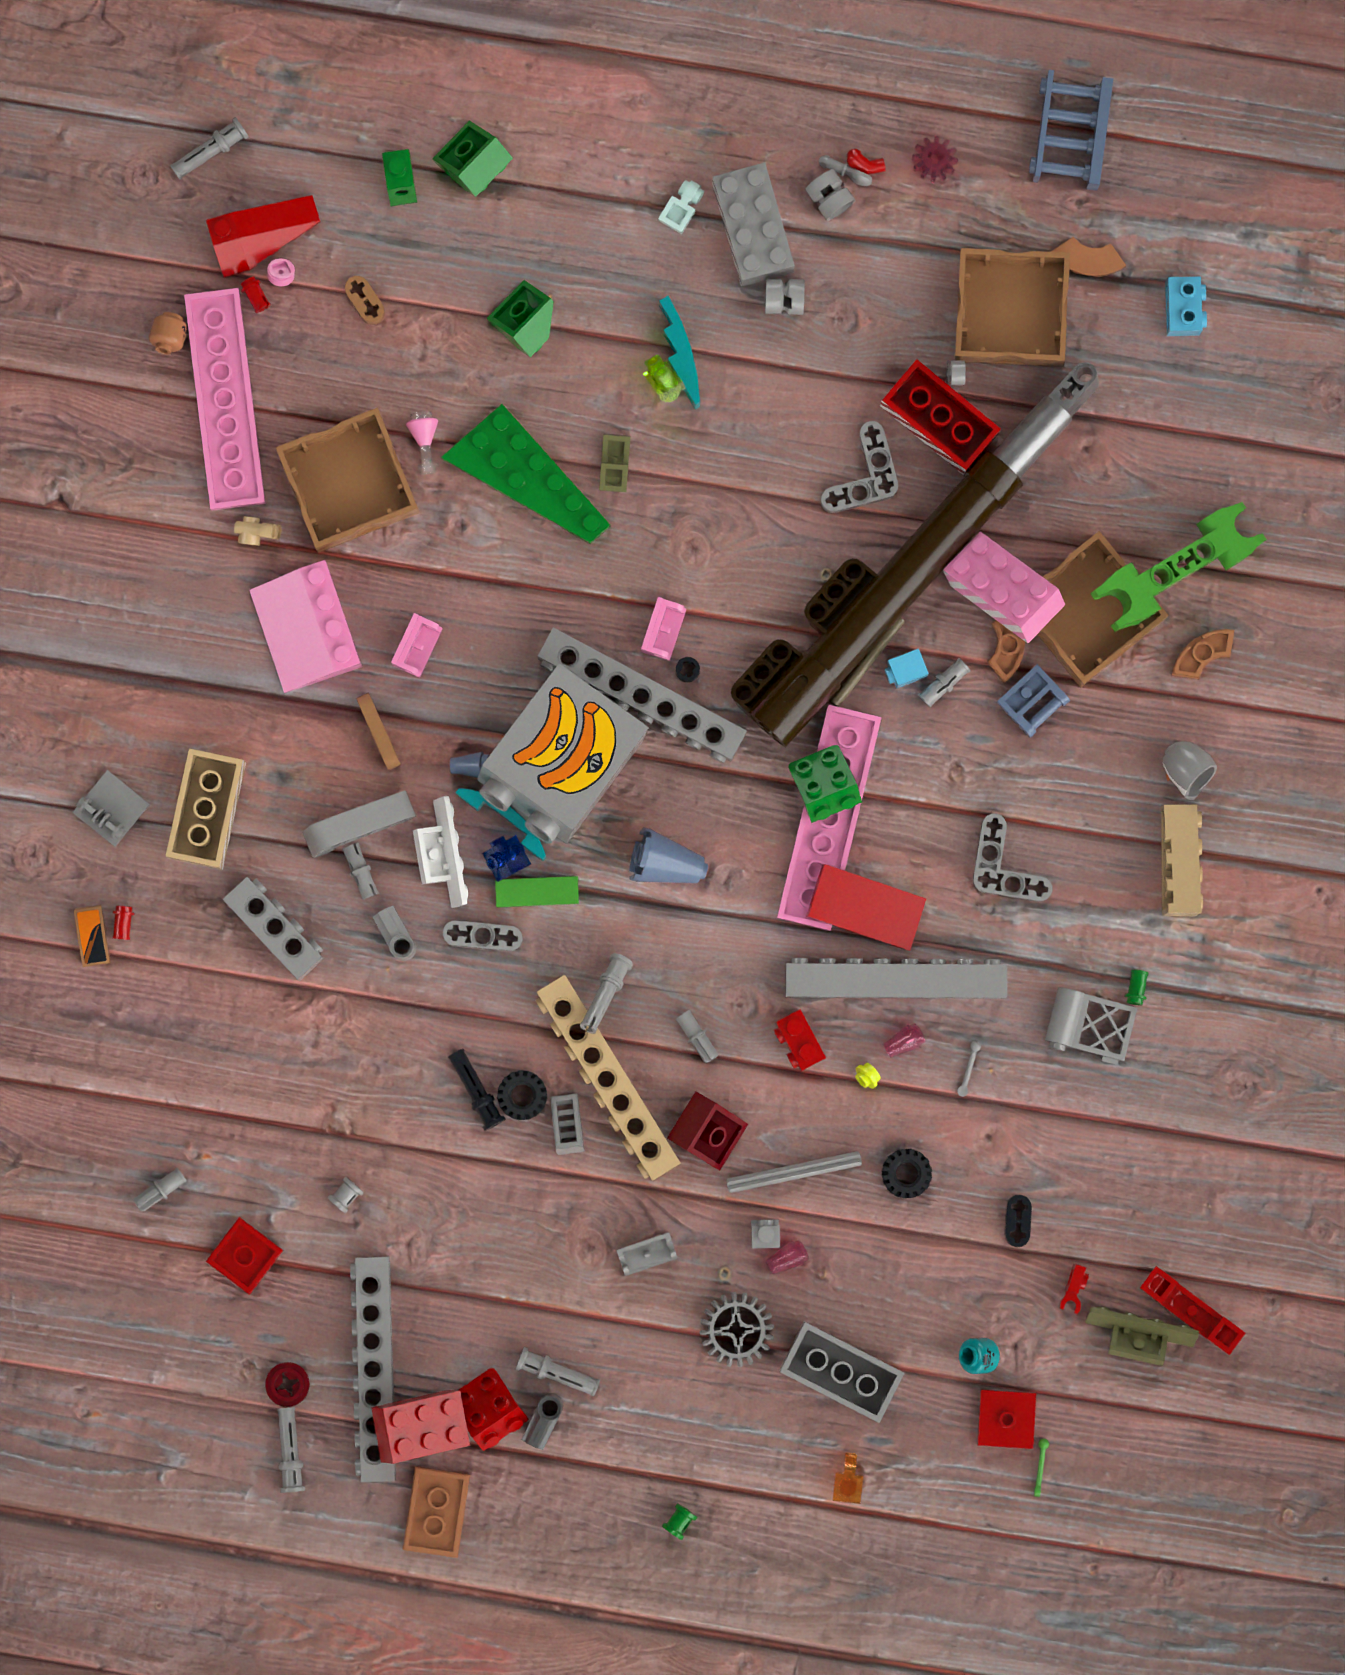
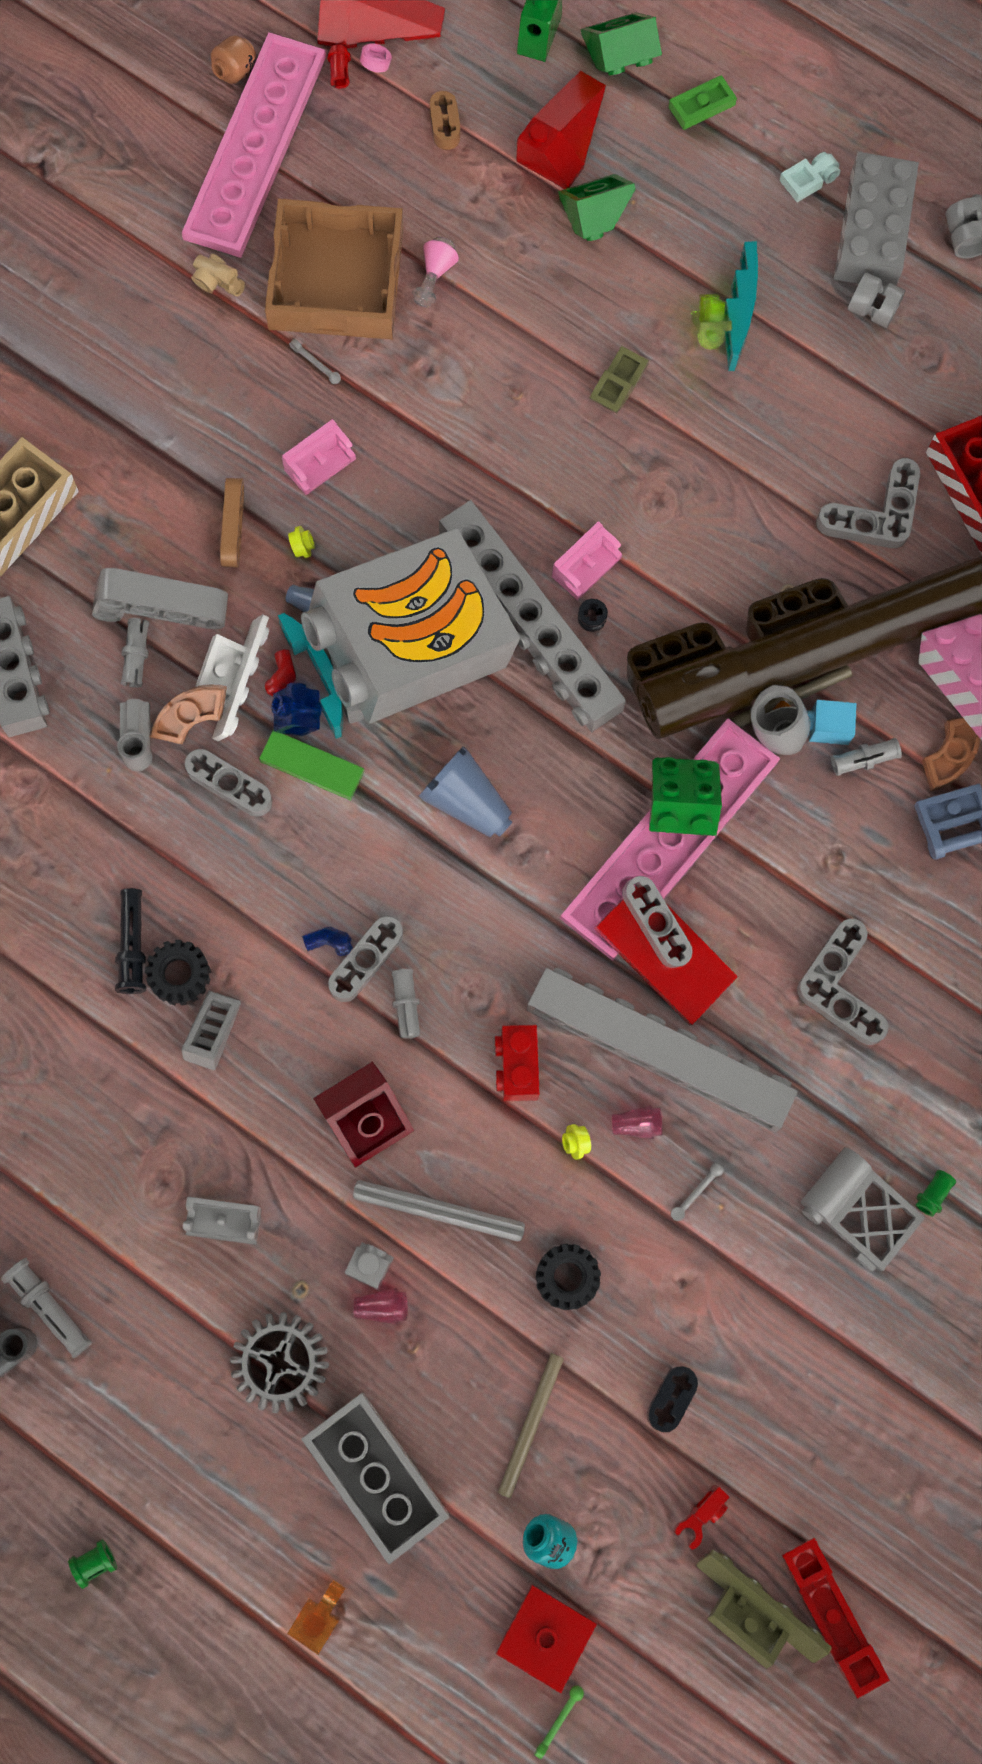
camera: 25 degrees right, 10 degrees down
(305, 627) = (216, 388): bright pink slope -> none
(392, 570) = (334, 377): none -> light grey hinge
(426, 897) = (188, 709): none -> nougat tile
(439, 721) = (301, 542): none -> neon yellow plate
(466, 263) = (561, 132): none -> red wedge
(481, 833) = (284, 675): none -> red arm
(517, 467) = (519, 345): green wing -> none
(564, 182) = (702, 102): none -> bright green plate
(610, 982) = (339, 895): light grey pin -> none
(618, 1014) = (329, 936): none -> clear blue arm
(662, 999) = (388, 945): none -> light grey beam
(665, 1159) = (282, 880): tan brick -> none
(829, 886) = (679, 938): none -> light grey beam
(871, 694) = (785, 726): none -> light grey piece
(929, 1285) = (530, 1425): none -> dark tan bar

